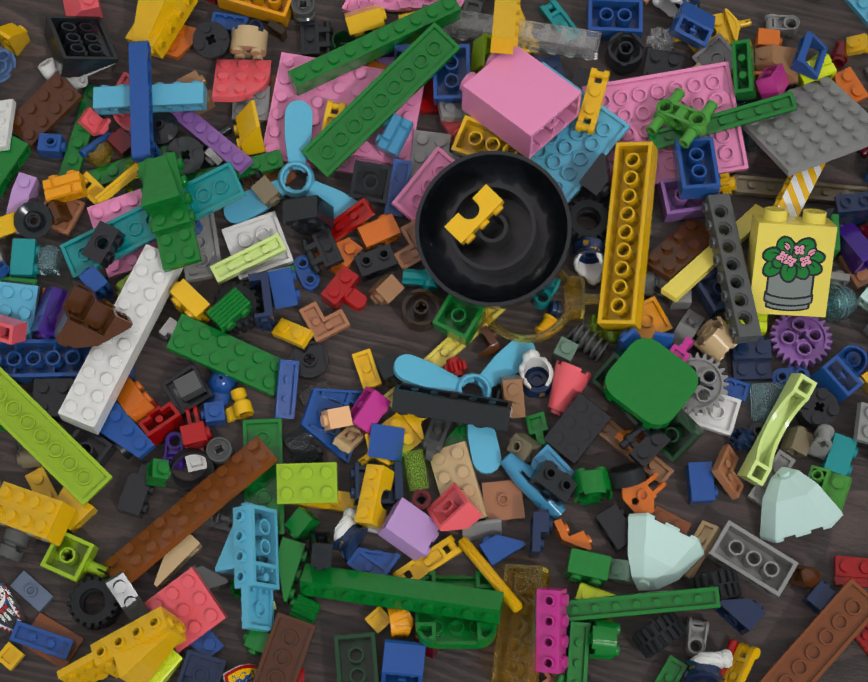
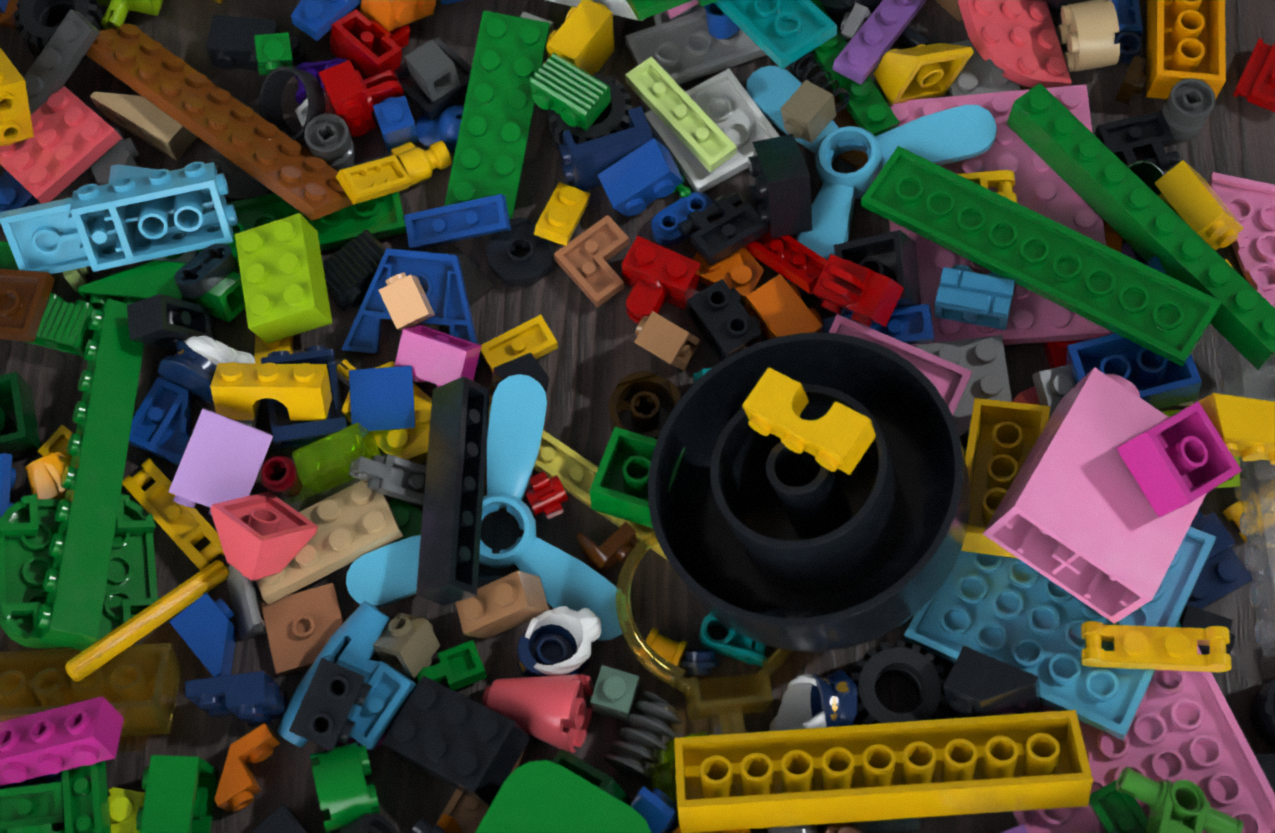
camera: 85 degrees right, 5 degrees down
(253, 427) = (373, 179): none -> yellow plate
(290, 528) = (205, 270): none -> black beam
(349, 439) = (374, 332): tan plate -> none
(383, 189) = (858, 291): none -> red brick
(520, 61) = (1179, 459): none -> dark pink brick

